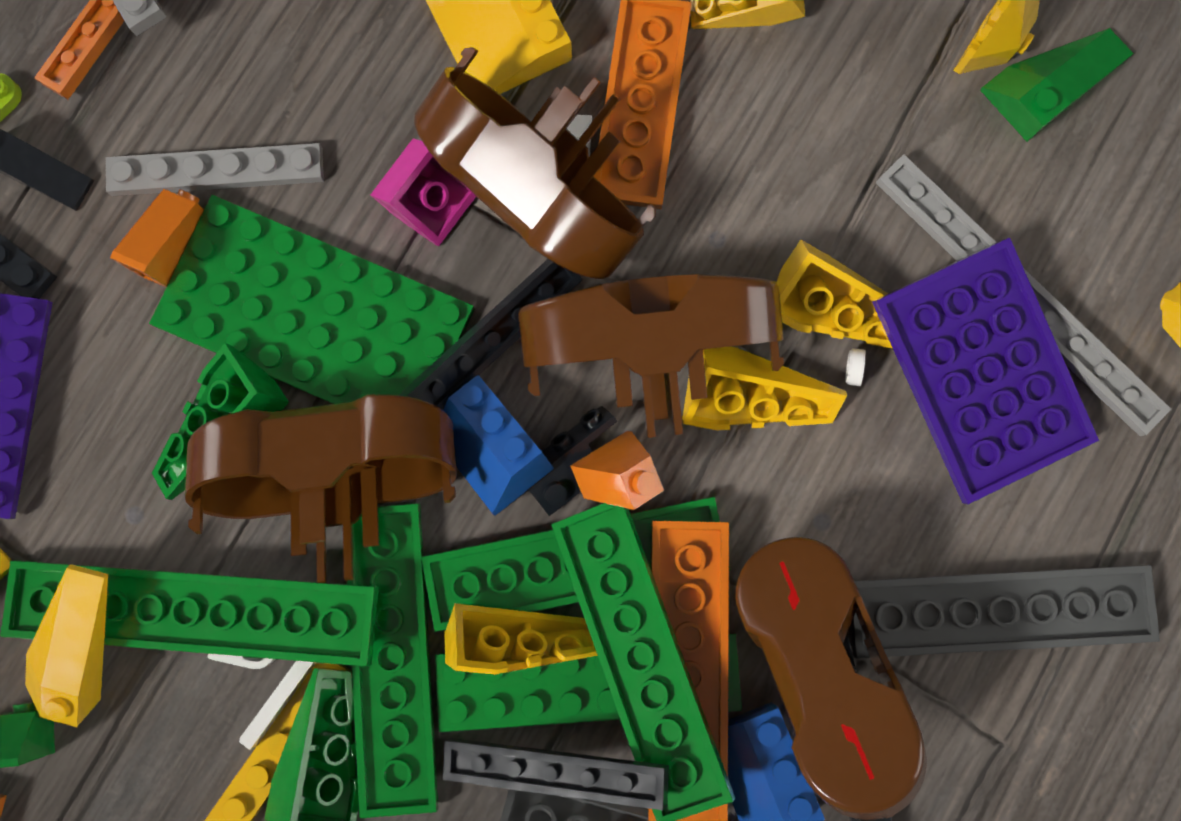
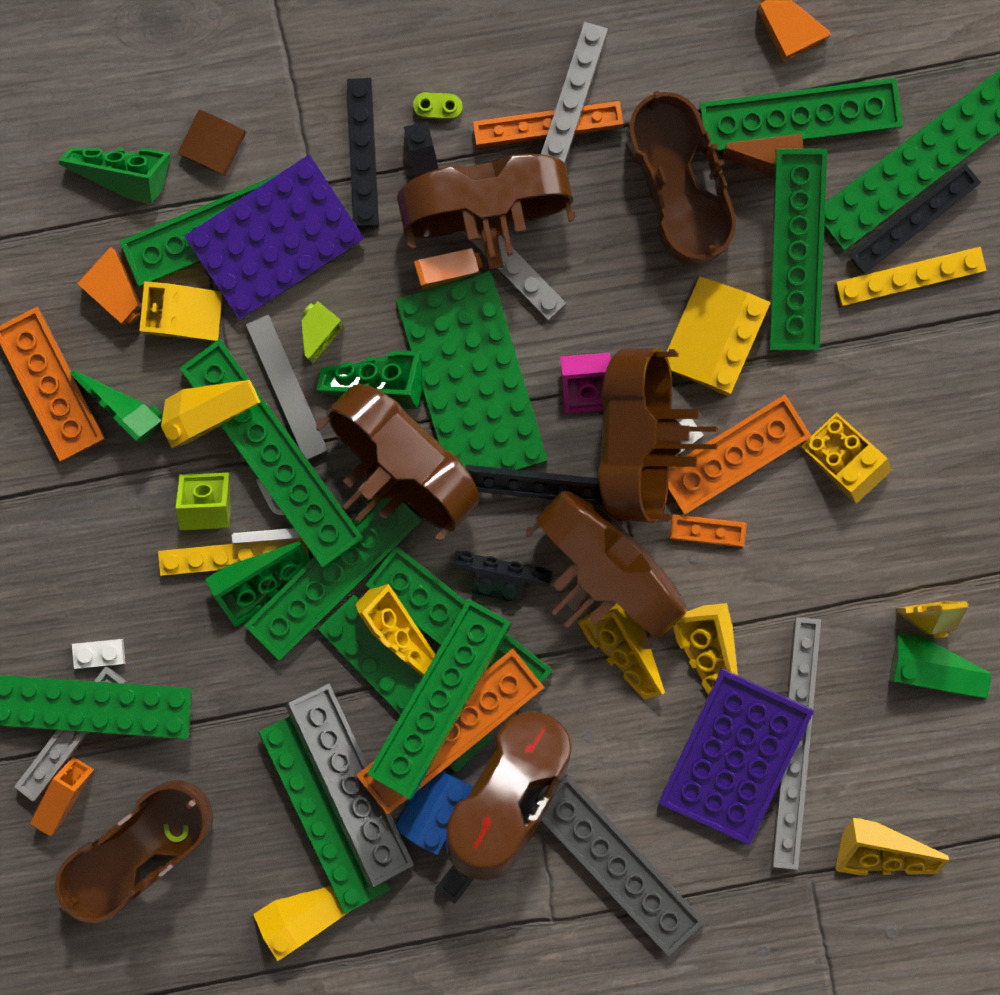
camera: 50 degrees right, 5 degrees up
(98, 435) = (319, 330): none -> lime slope
(116, 125) = (485, 200): none -> reddish brown piece
(136, 530) = (286, 387): none -> light grey tile
(176, 742) = (203, 501): none -> lime slope
(492, 446) = (482, 534): blue slope -> none
(557, 773) = (348, 703): black plate -> none
(618, 473) = (521, 611): orange slope -> none
(701, 198) = (708, 530): none -> orange tile
(855, 367) = (682, 687): white tile -> none

